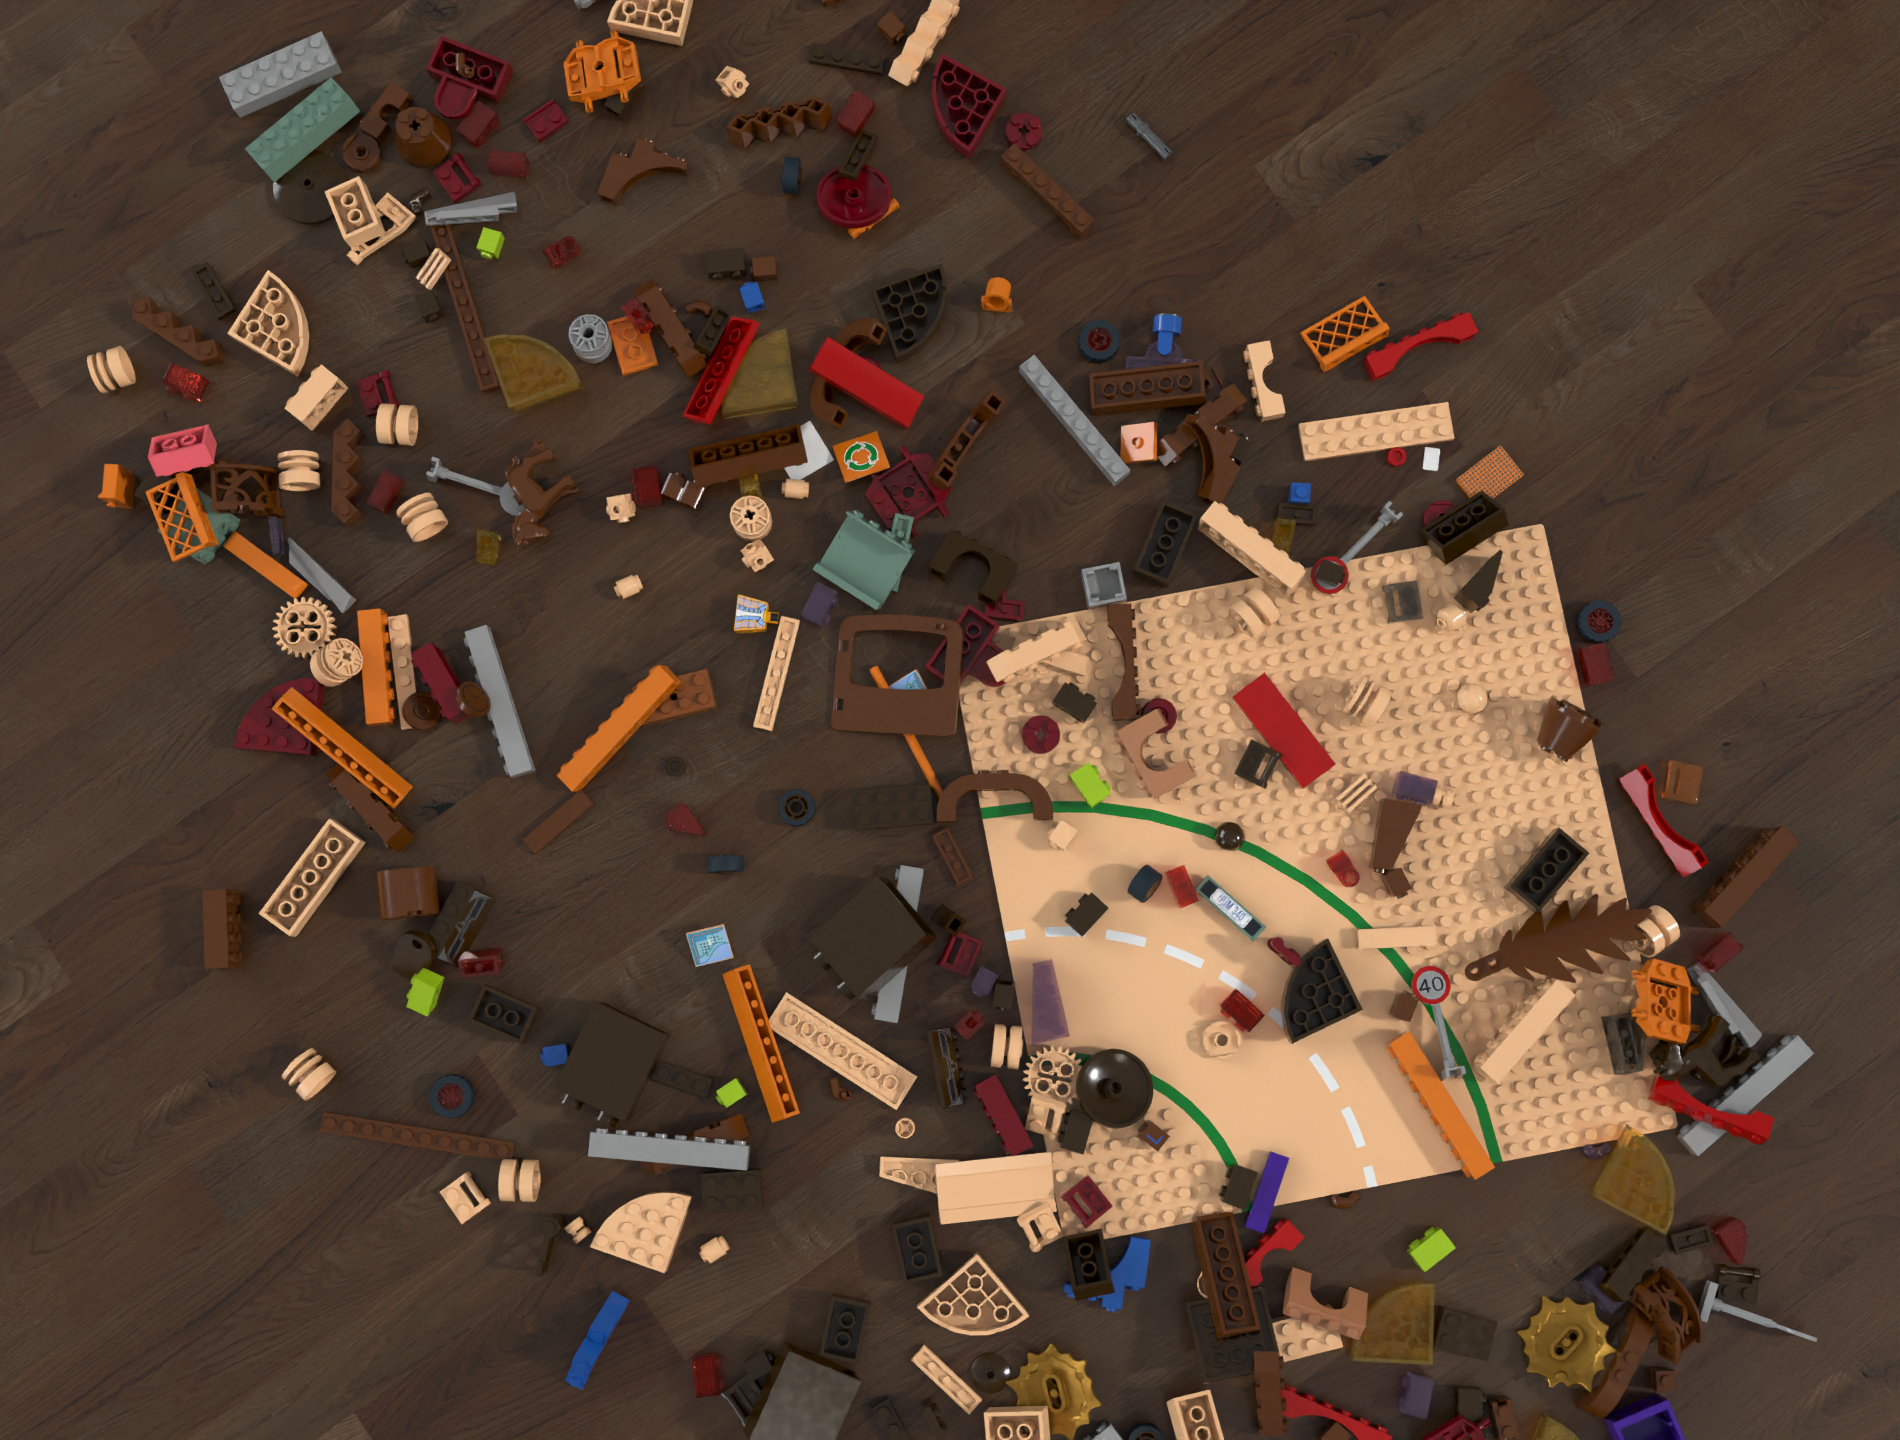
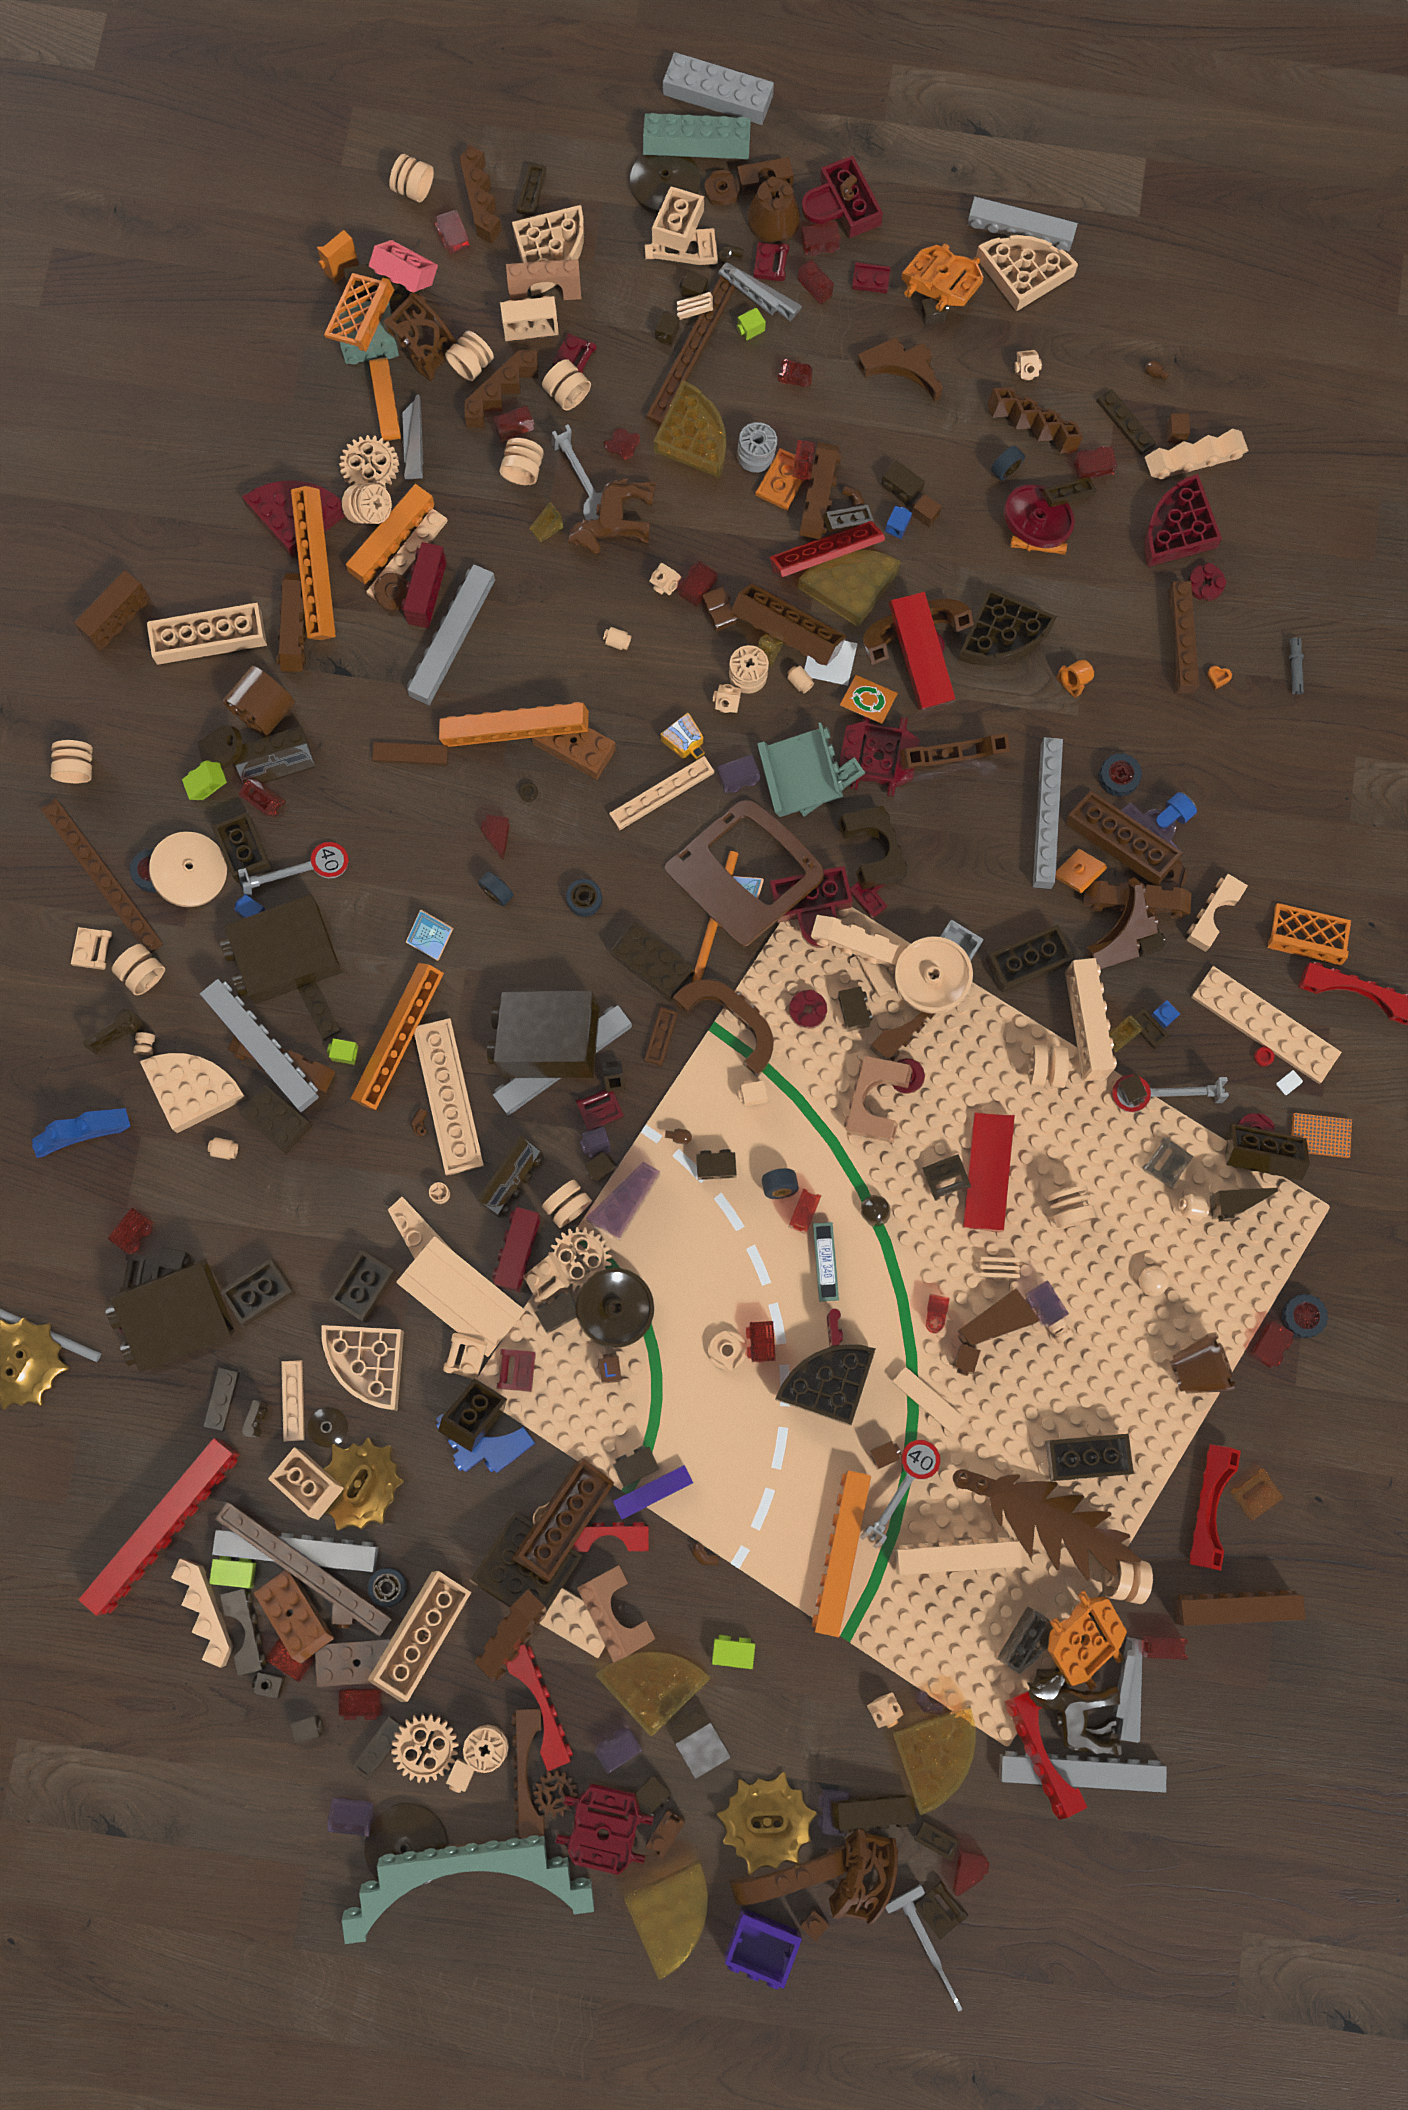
camera: 40 degrees right, 5 degrees down
(276, 536) = (411, 387): clear purple tile -> none
(282, 367) = (524, 275): none -> nougat arch
(473, 699) = (433, 612): reddish brown tile -> none
(479, 1088) = (184, 885): none -> light nougat dish
(481, 428) = (623, 443): none -> clear red plate
(576, 962) = (327, 860): none -> light grey piece
(965, 1028) = (556, 1163): clear red brick -> none
(1038, 918) = (679, 1136): none -> reddish brown cylinder
(1090, 785) = (808, 1077): lime brick -> none
(1099, 197) = (1218, 676): none -> orange tile
(1114, 606) = (928, 958): none -> light nougat dish
(1573, 1185) = (885, 1710): none -> light nougat brick

